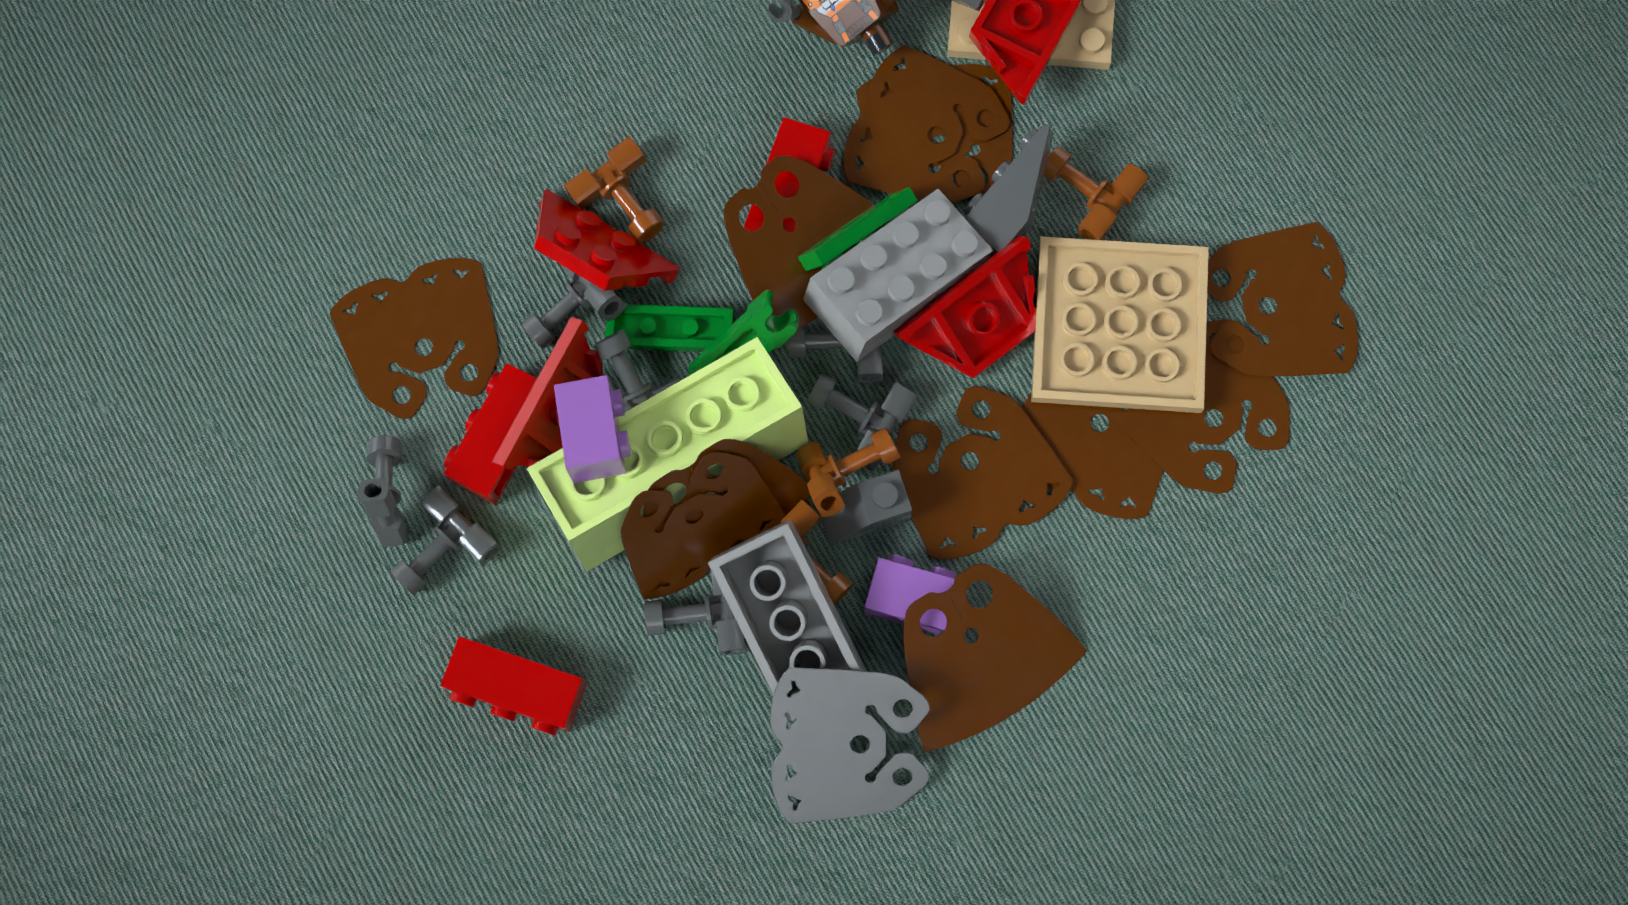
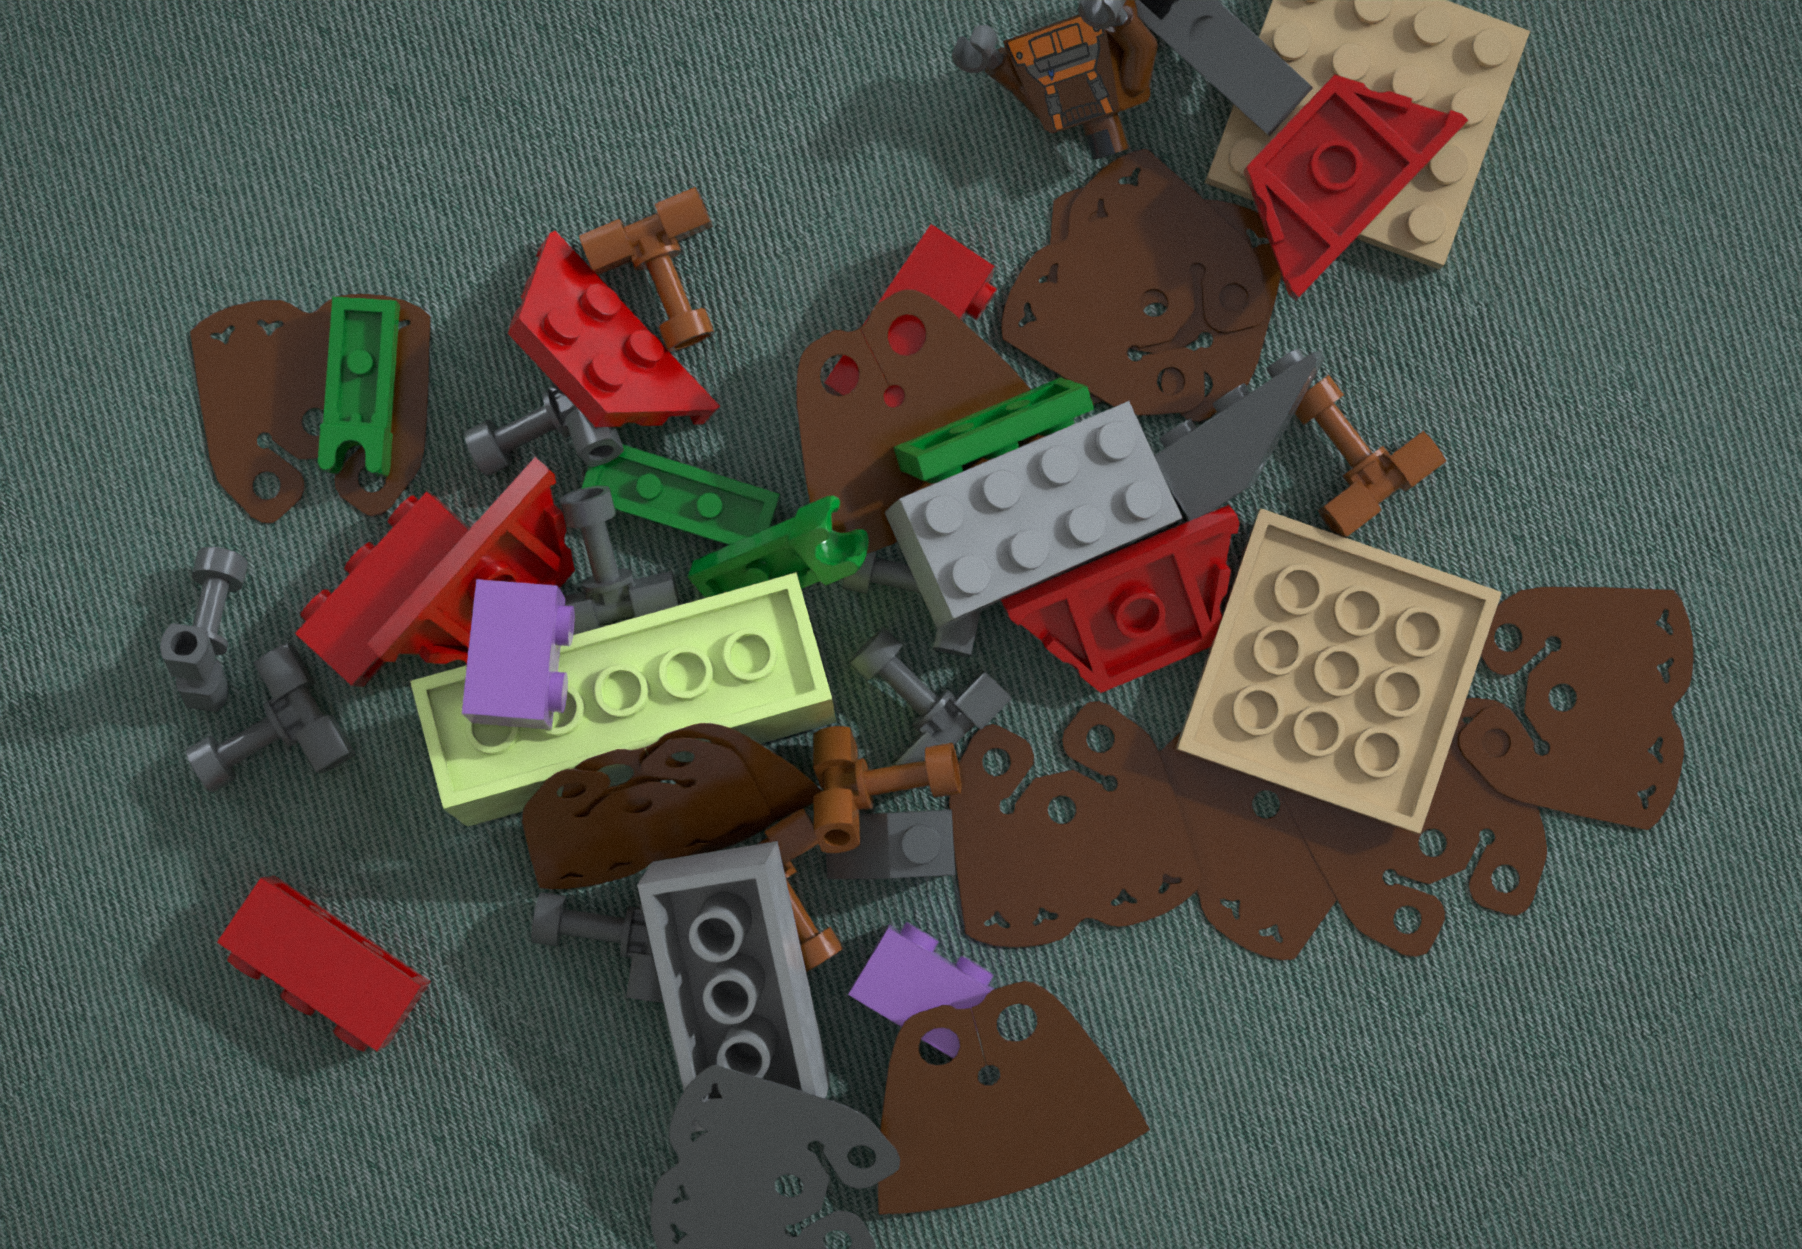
camera: 10 degrees right, 10 degrees up
(446, 312) = (359, 383): none -> green plate

